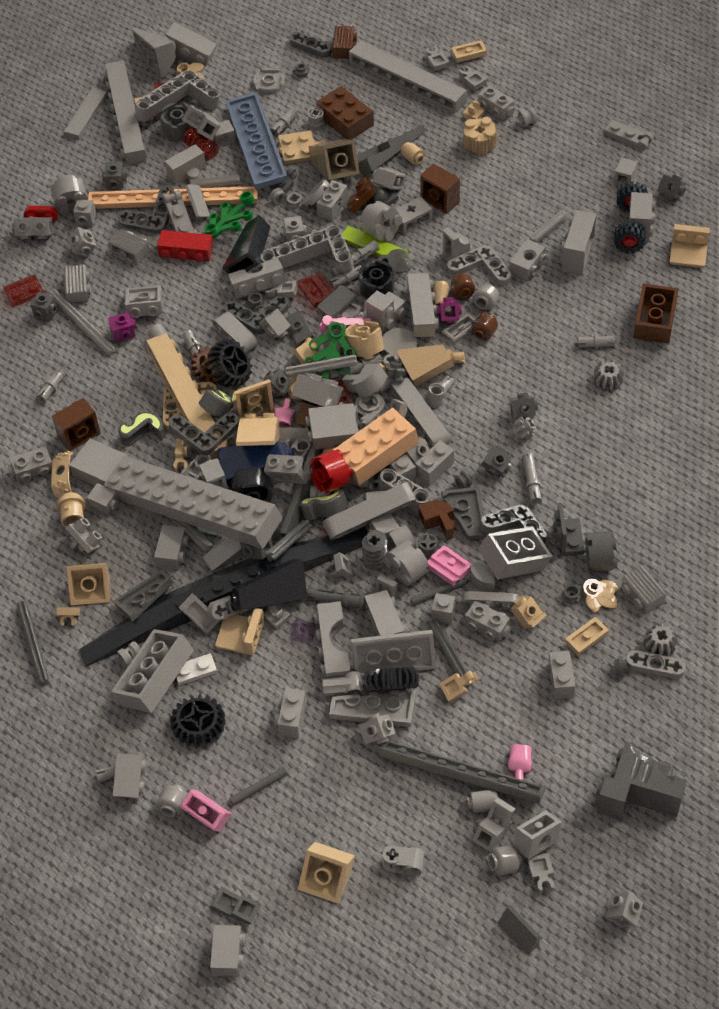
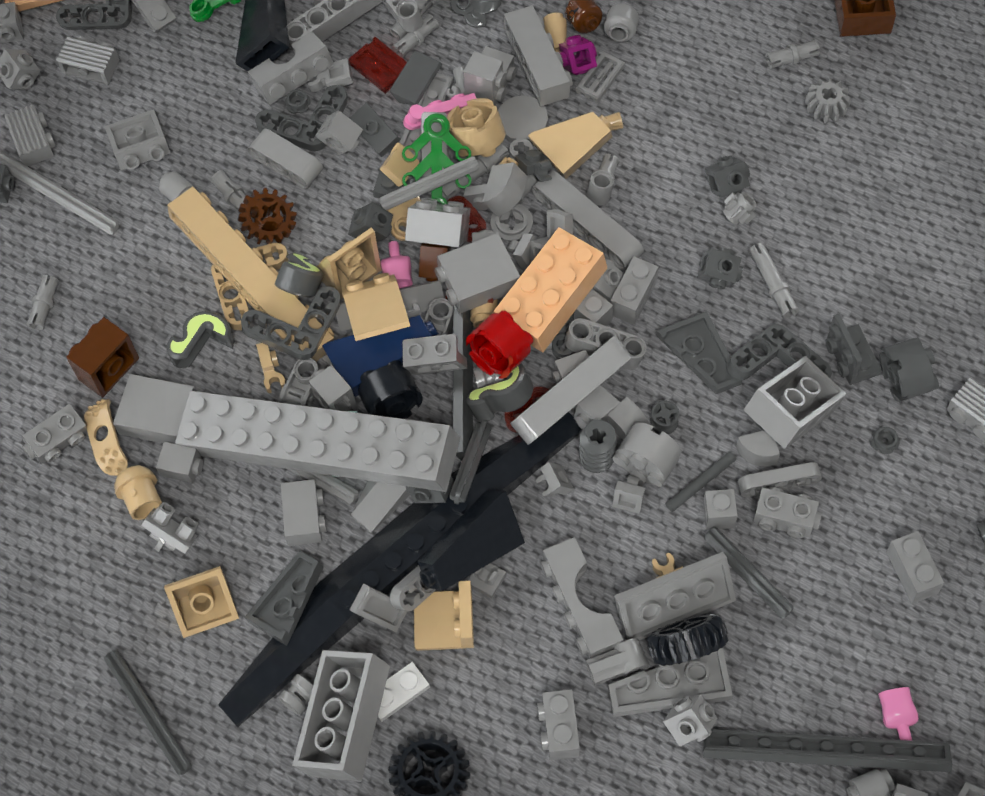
camera: 15 degrees left, 10 degrees up
(68, 612) = (185, 652): tan tile -> none
(122, 327) = (119, 187): magenta brick -> none
(185, 245) = (169, 40): red brick -> none
(226, 359) = (296, 210): black gear -> none
(302, 631) = (529, 592): slope -> none
(347, 598) = (577, 528): dark grey pin -> none
(376, 277) = (461, 32): black brick -> none
(383, 614) = (643, 544): light grey brick -> none
(438, 513) = (665, 366): reddish brown brick -> none
(449, 565) = (705, 441): bright pink plate -> none
(455, 685) = (775, 622): tan plate -> none
(463, 480) = (680, 306): dark grey bush -> none
(484, 326) = (634, 66): reddish brown head -> none
(527, 612) = (838, 485): tan brick -> none
(587, 636) = (927, 499): tan plate -> none
(602, 596) = (927, 431): tan plate -> none

